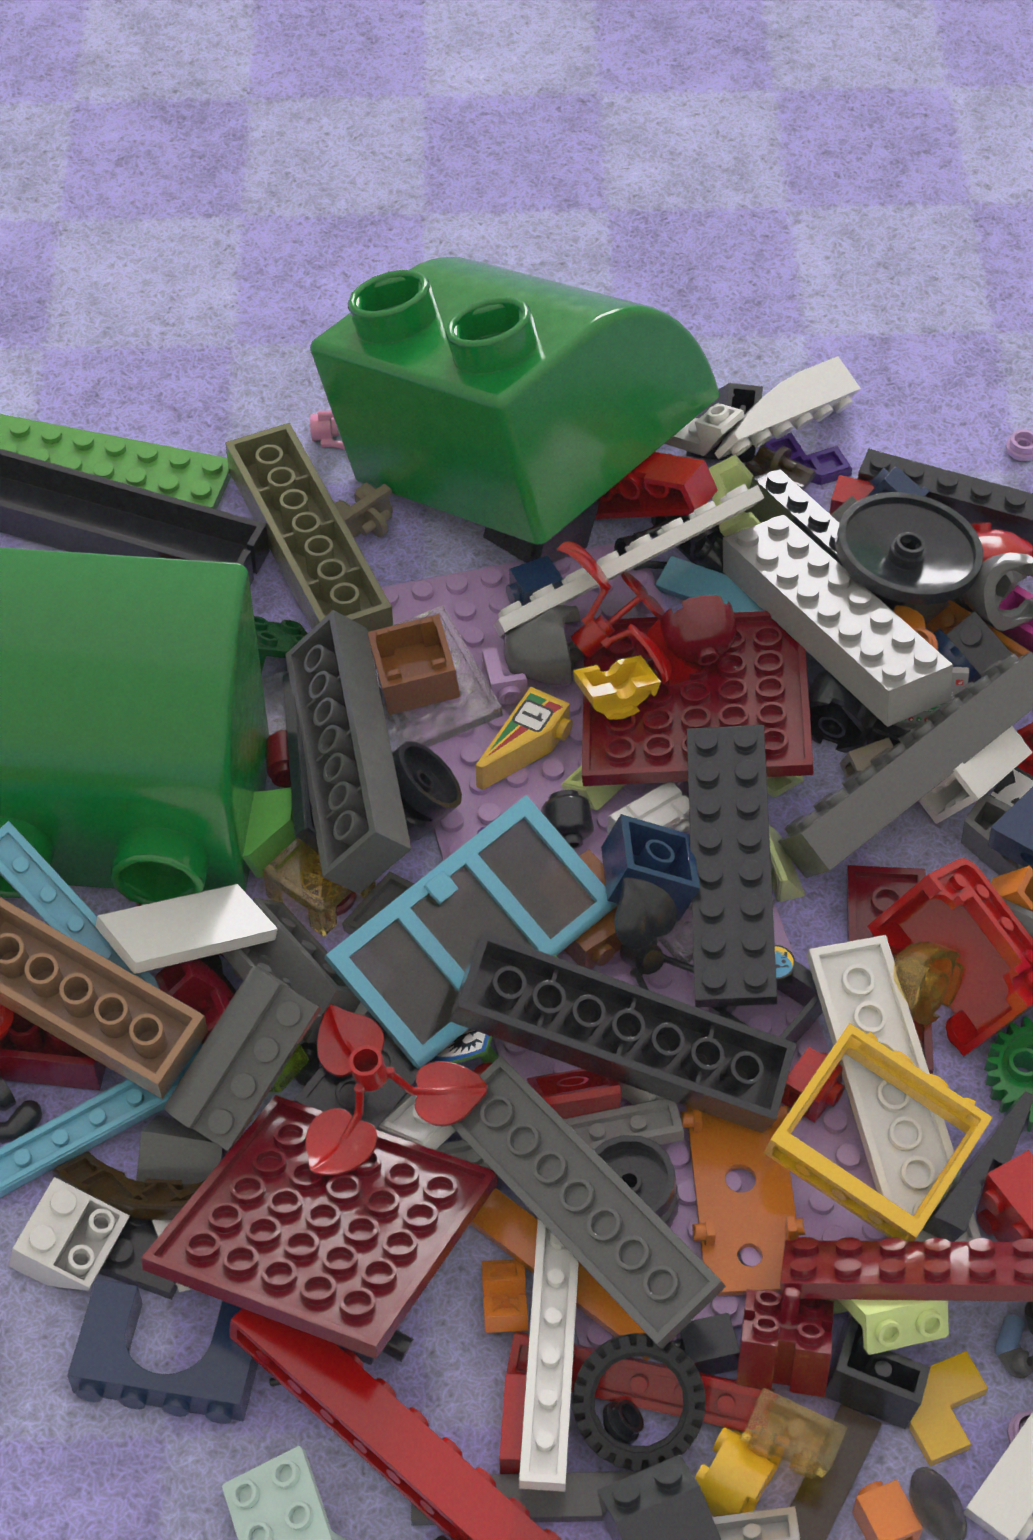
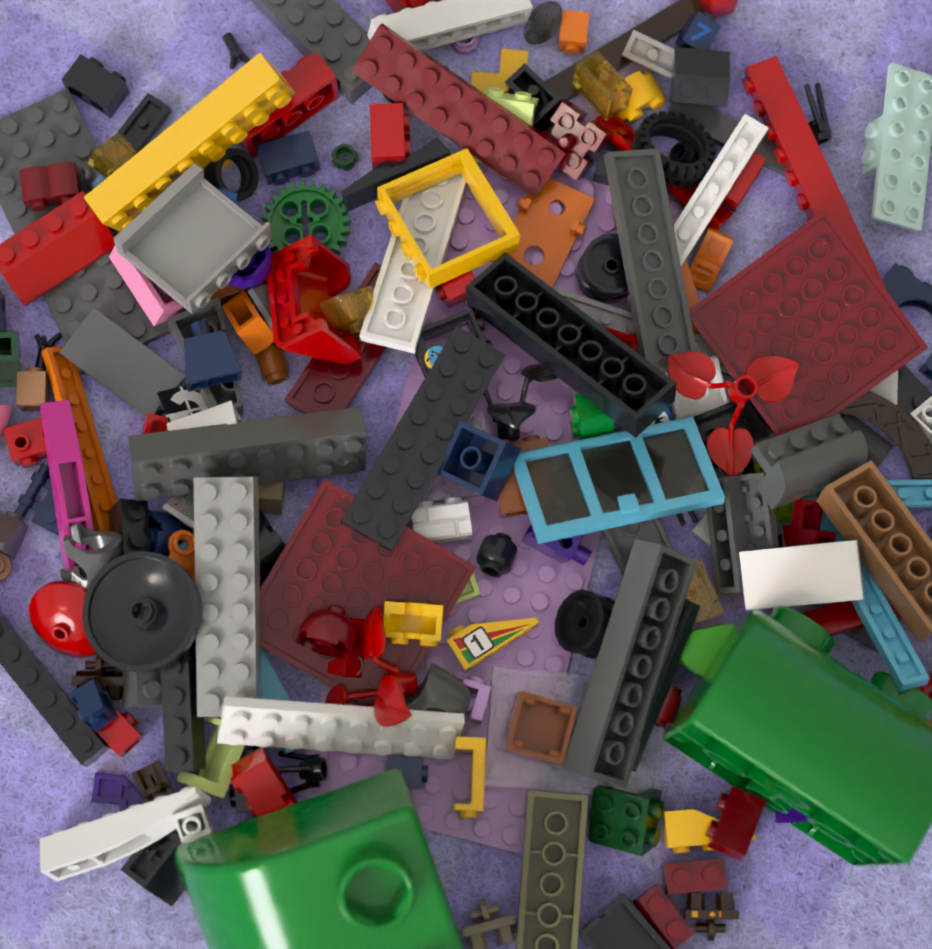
camera: 155 degrees left, 25 degrees up
(471, 615) = (478, 748): none -> yellow panel
(783, 874) = (374, 445): yellowish green slope -> none

